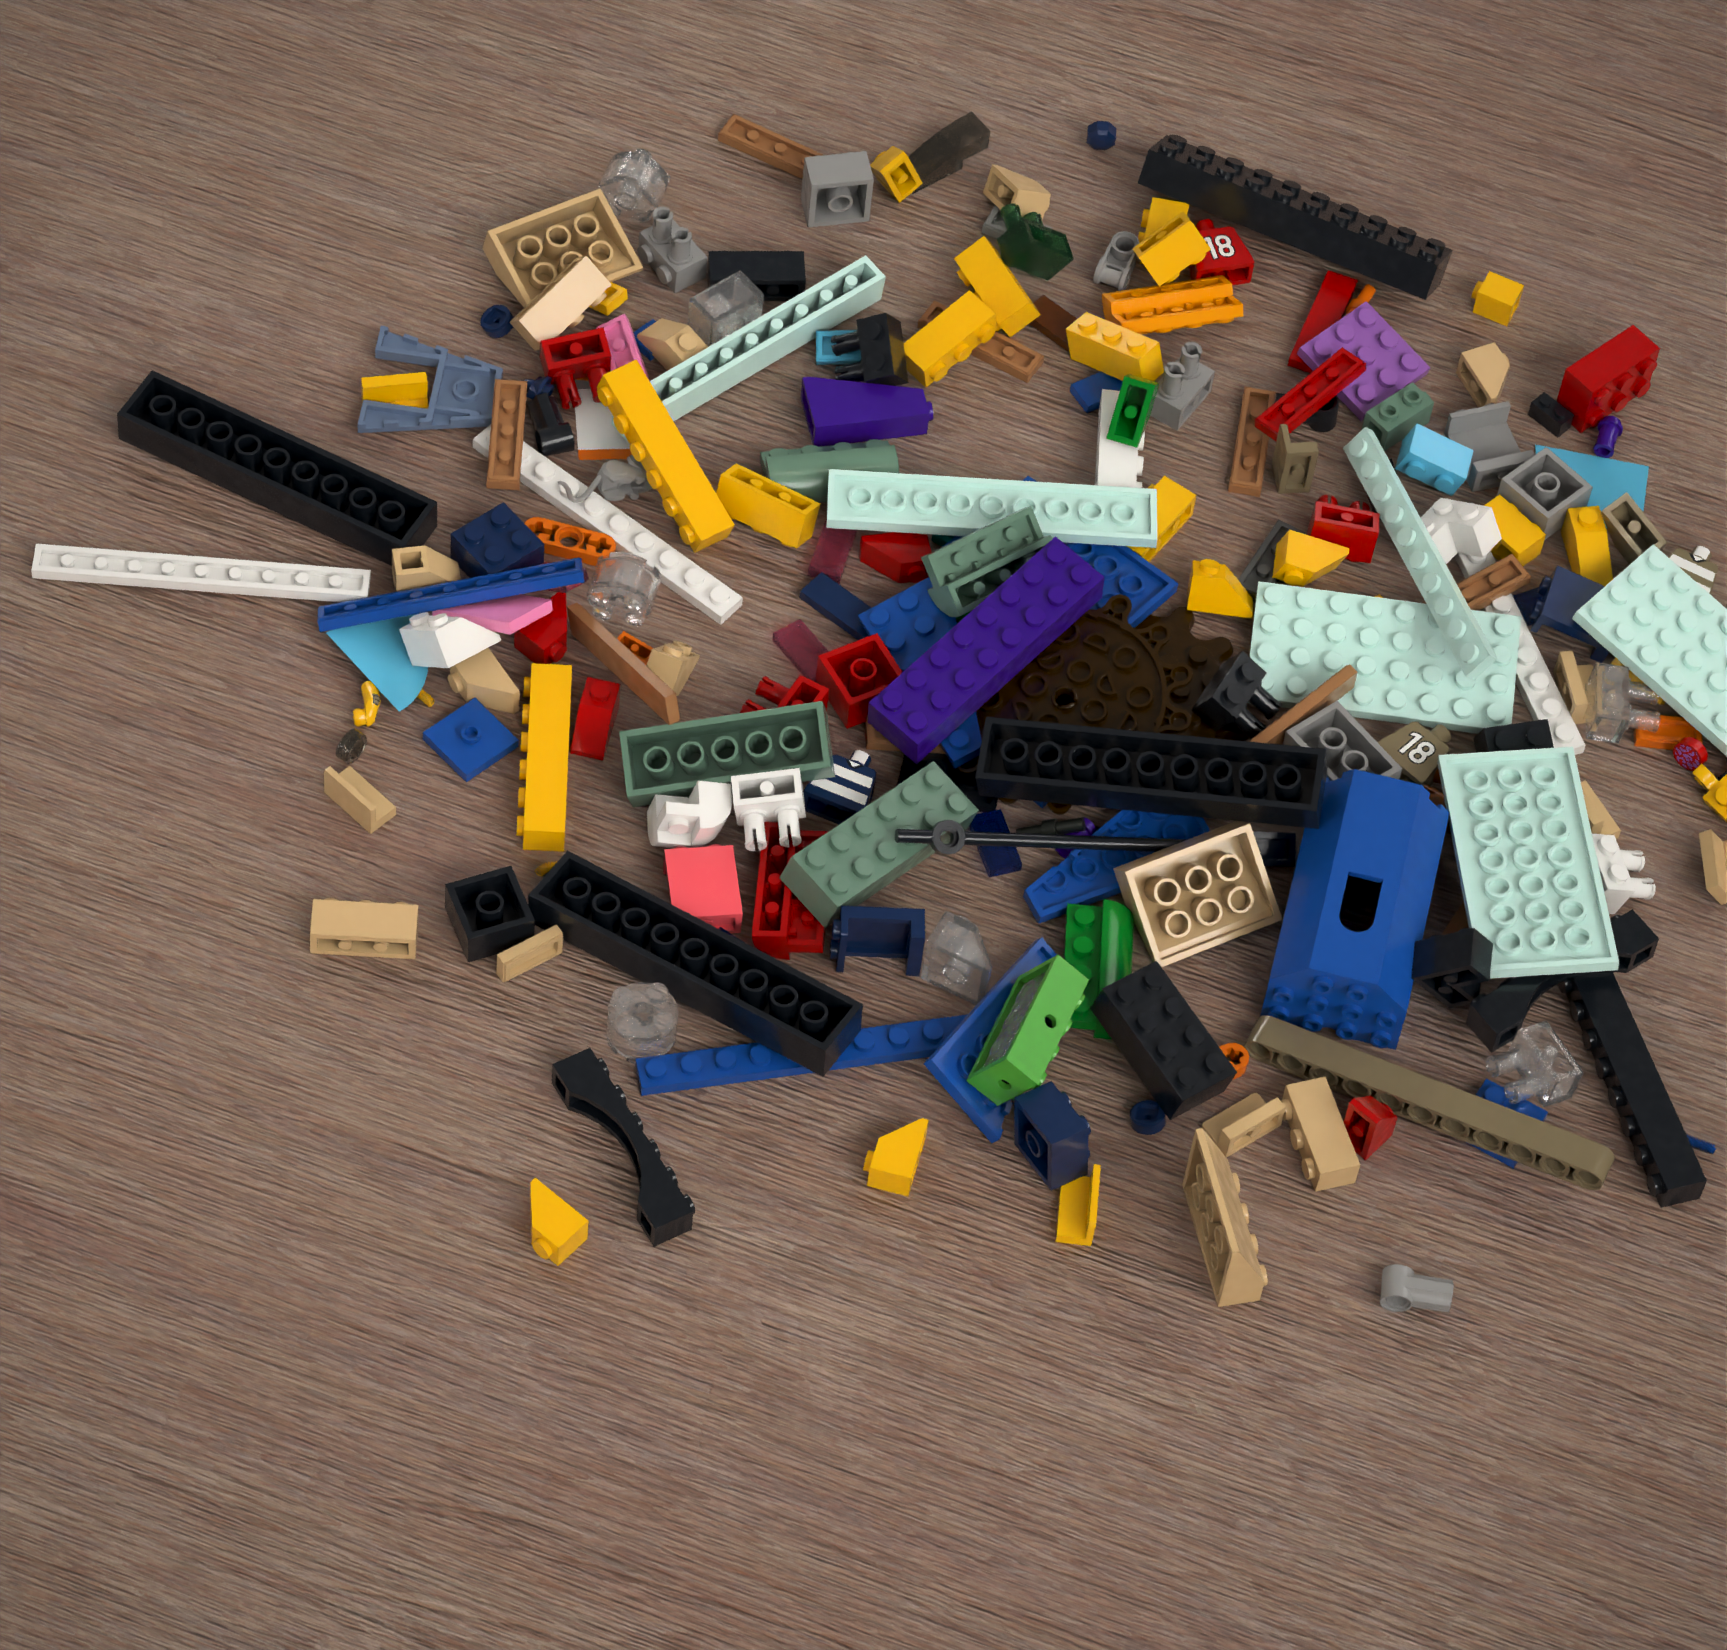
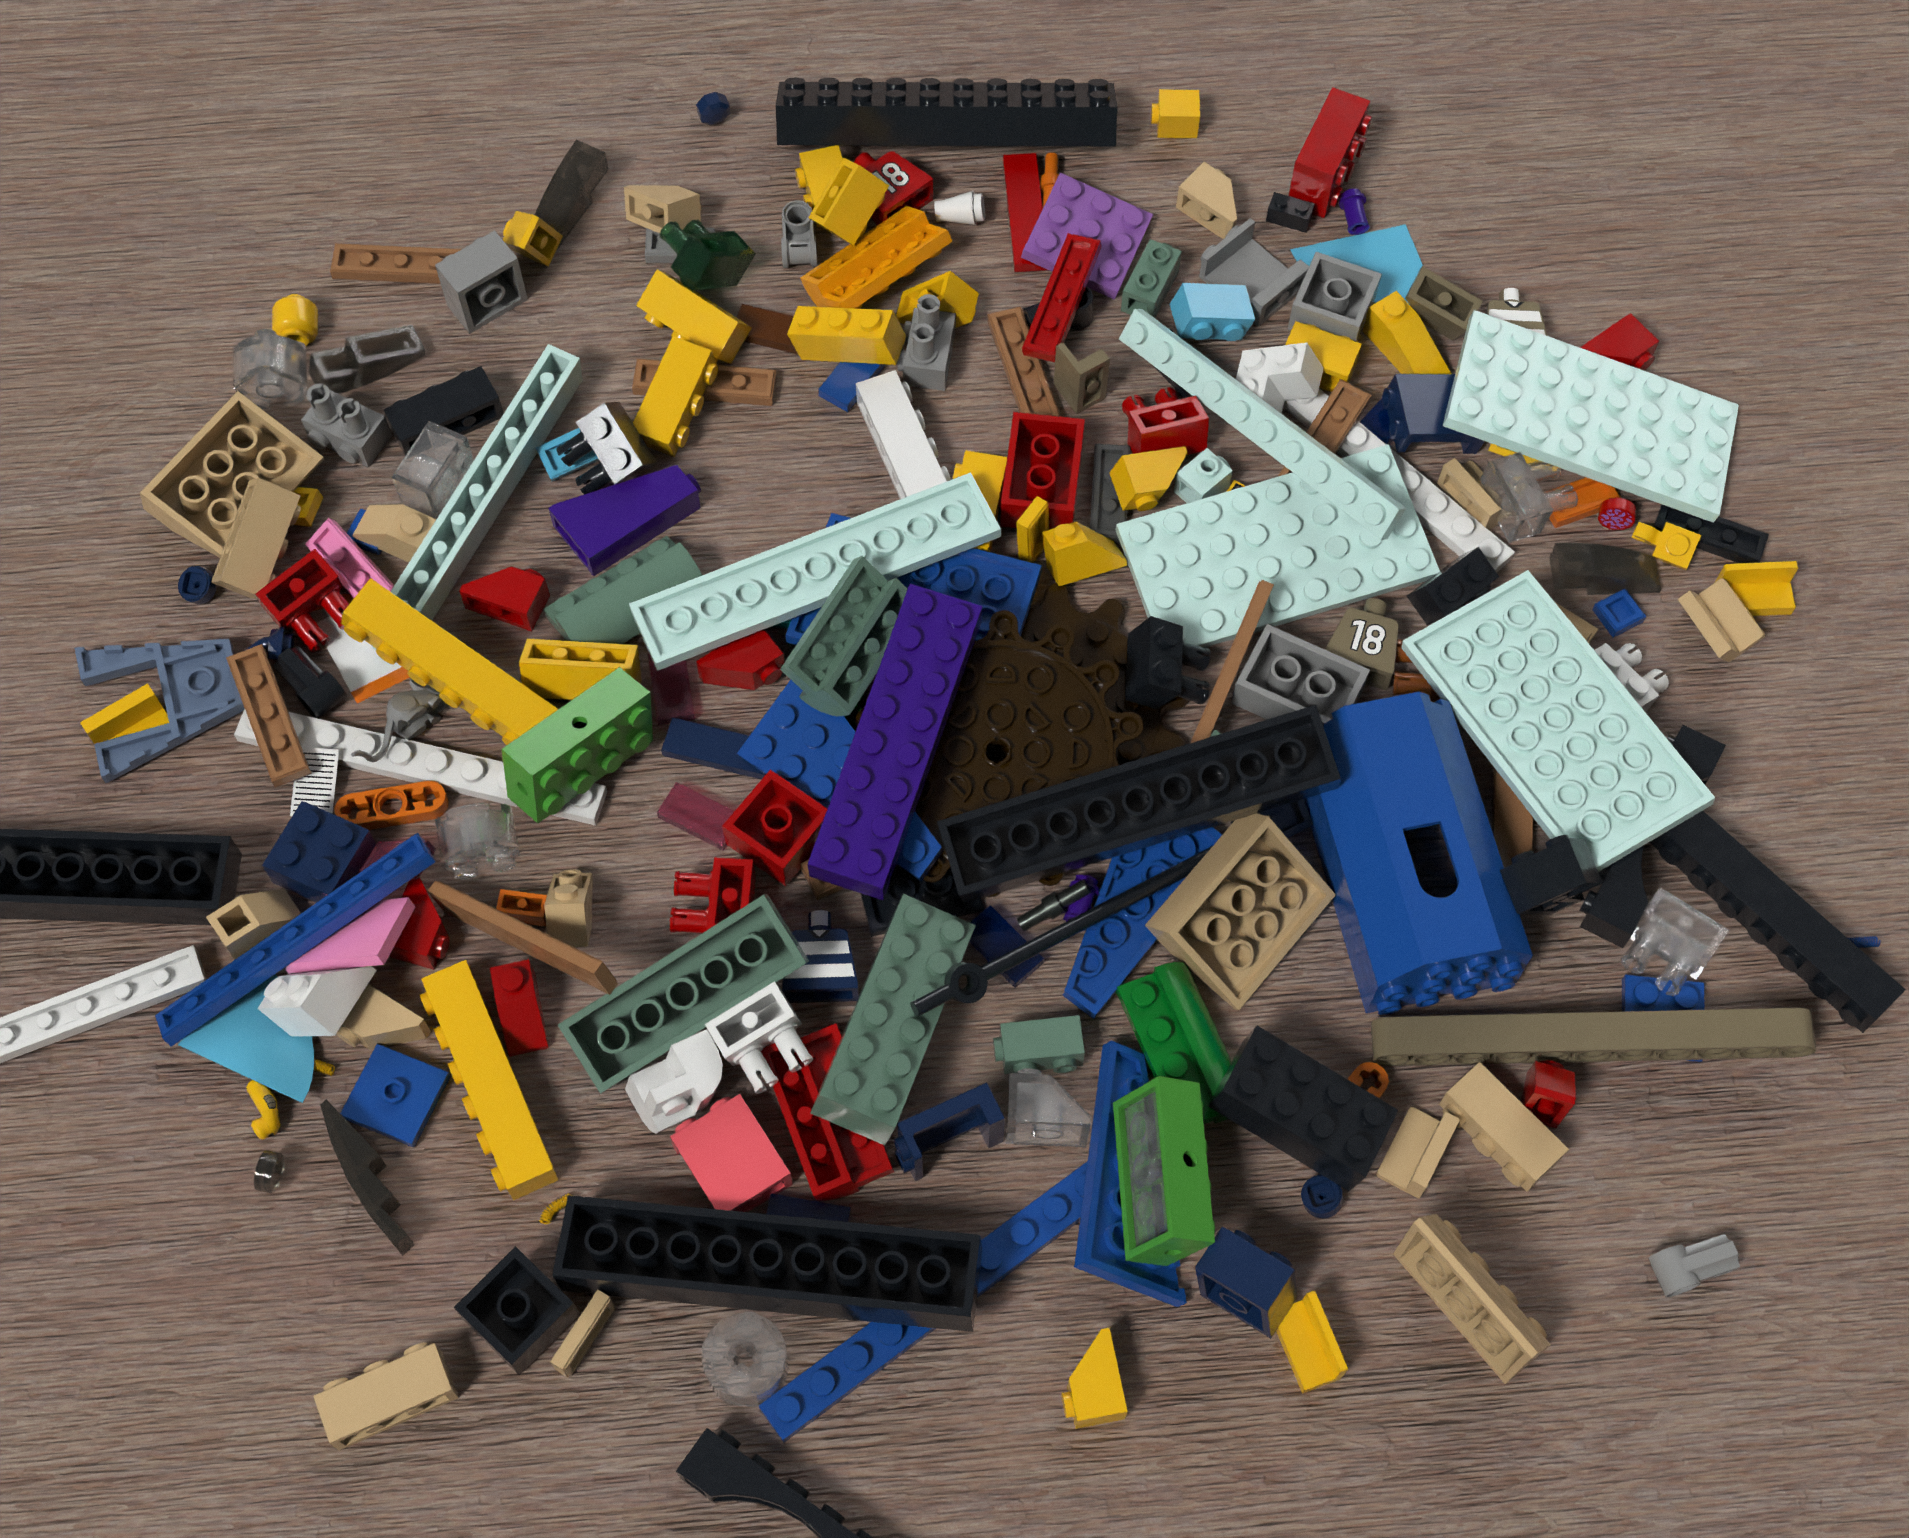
camera: 20 degrees left, 10 degrees up
(358, 798) = (306, 1229): tan panel -> none
(422, 778) = (361, 1167): none -> clear smoke slope
(524, 499) = (319, 786): none -> white sticker
(674, 156) = (295, 318): none -> yellow head
(715, 210) = (366, 358): none -> clear smoke slope
(736, 552) = (578, 745): none -> bright green brick
(737, 430) = (508, 596): none -> red slope
(996, 918) = (1040, 1045): none -> sand green brick
(1132, 410) = (901, 394): green slope -> none
(1183, 551) = (1030, 530): none -> yellow tile
(1217, 355) = (952, 292): none -> yellow slope
(1220, 517) = (1042, 463): none -> red brick
(1271, 298) = (963, 208): none -> white cone
(1353, 577) = (1203, 477): none -> light aqua brick
(1647, 828) = (1619, 613): none -> blue tile
(1653, 788) = (1603, 569): none -> clear smoke slope

